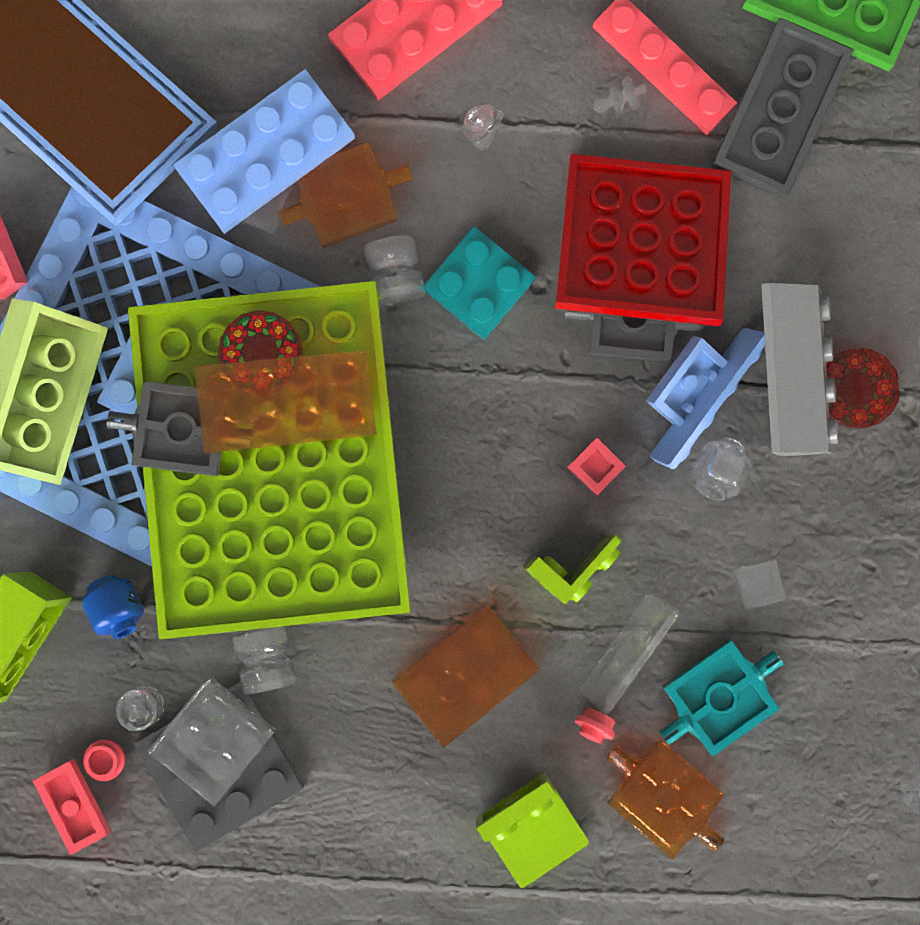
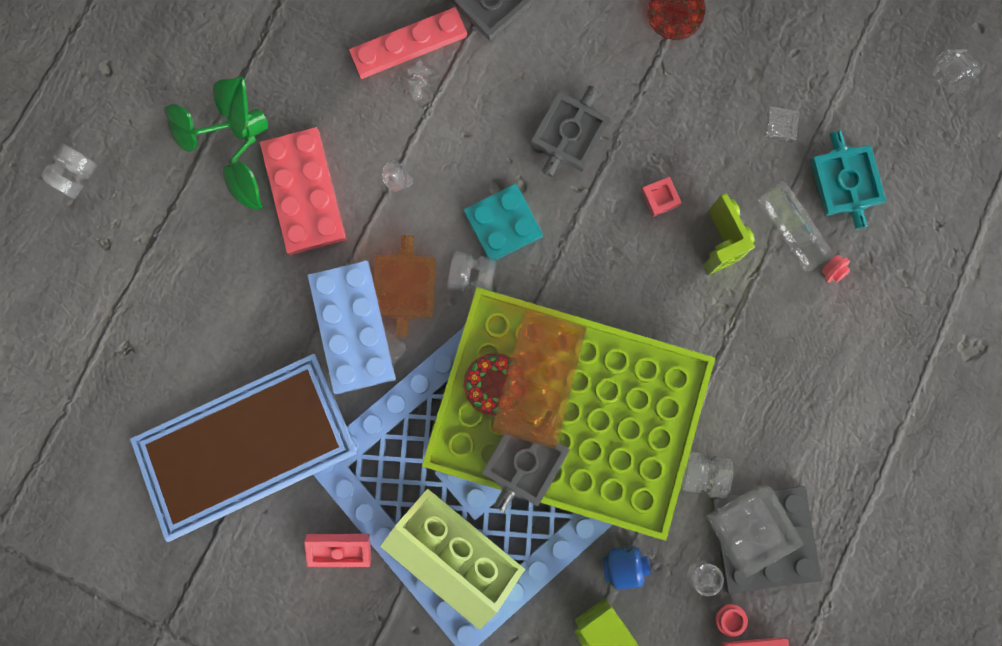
camera: 70 degrees left, 5 degrees down
(465, 676) = (768, 342): clear orange plate -> none
(532, 830) = (891, 340): lime bracket -> none
(644, 240) = (523, 101): red plate -> none
(665, 798) = (901, 244): clear orange plate -> none
(696, 390) = (637, 109): light blue bracket -> none
(721, 469) = (696, 116): clear head -> none
(797, 369) = (653, 39): light grey slope -> none

